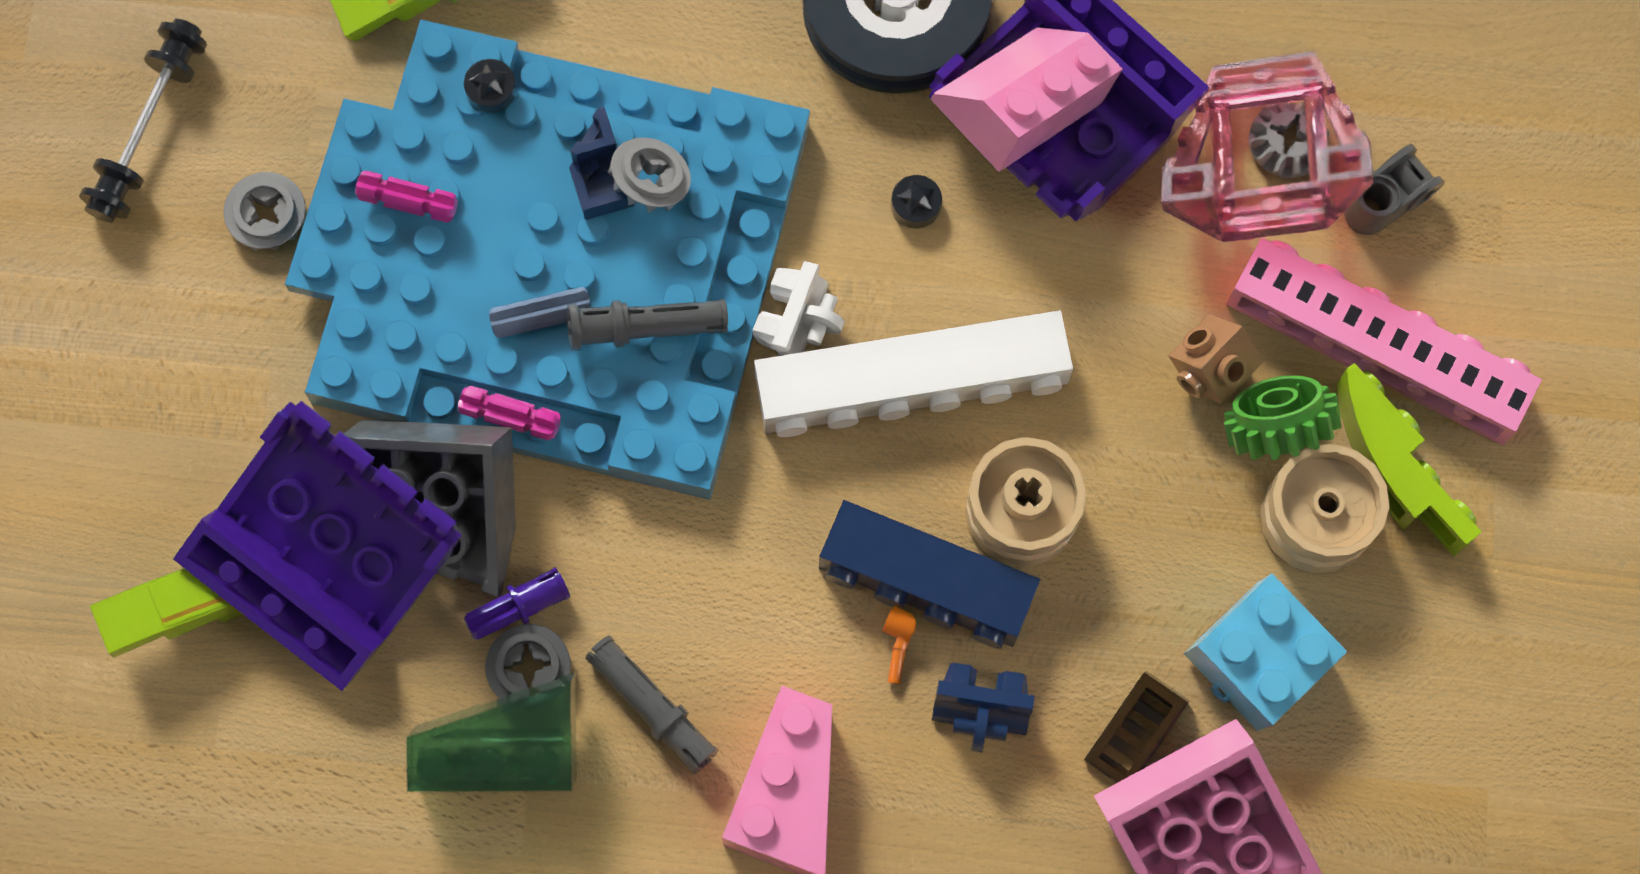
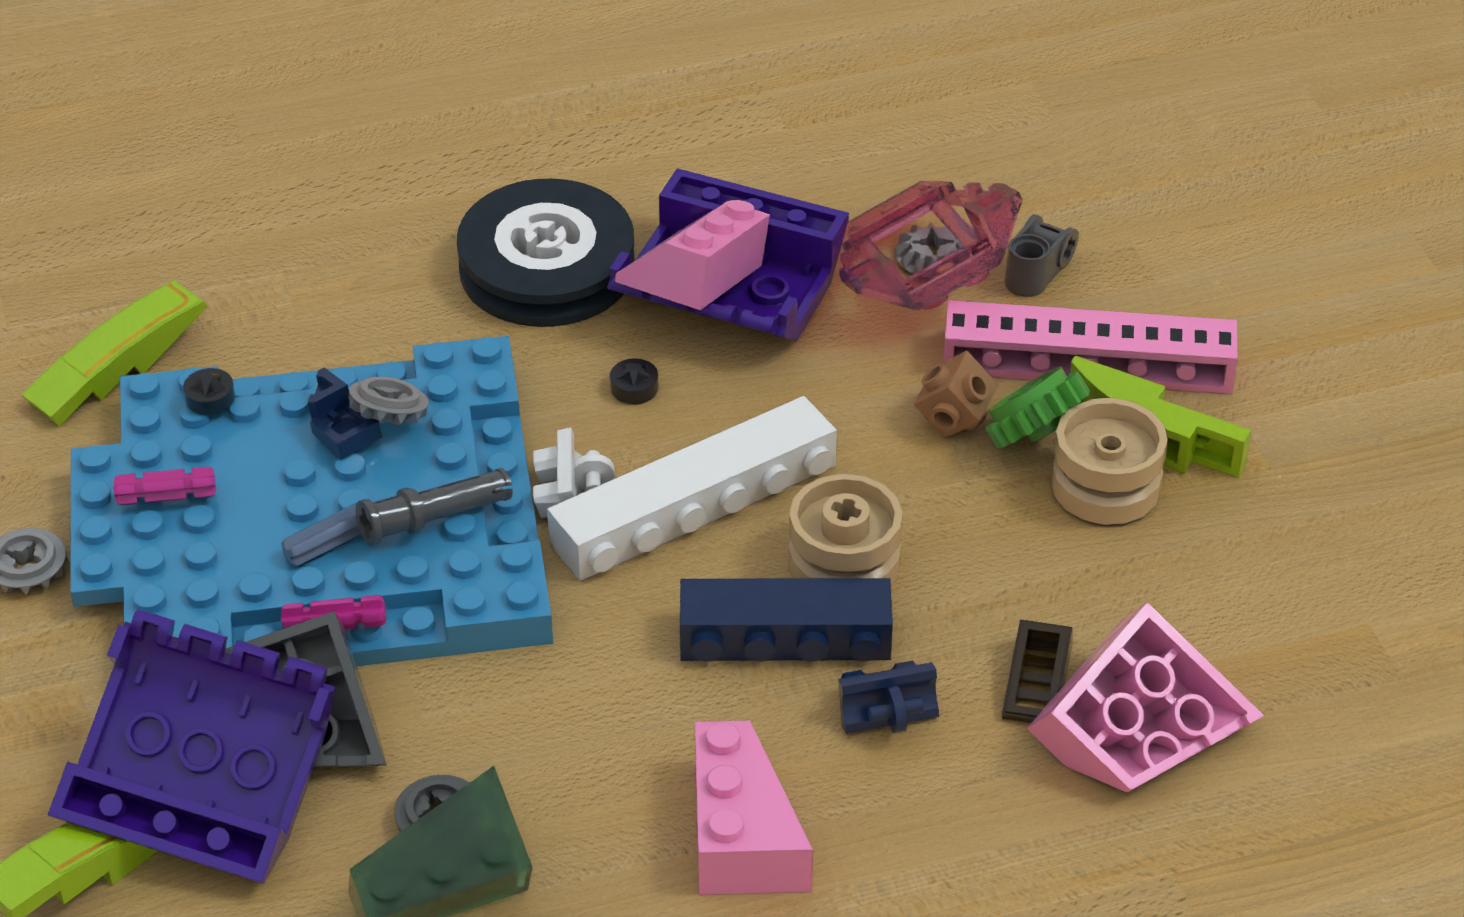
camera: 20 degrees left, 30 degrees down
(517, 604) = (406, 765): dark purple axle -> none
(666, 720) = (596, 806): dark grey pin -> none
(902, 626) = (780, 669): orange hand -> none
(1265, 653) = (1115, 569): medium azure brick -> none

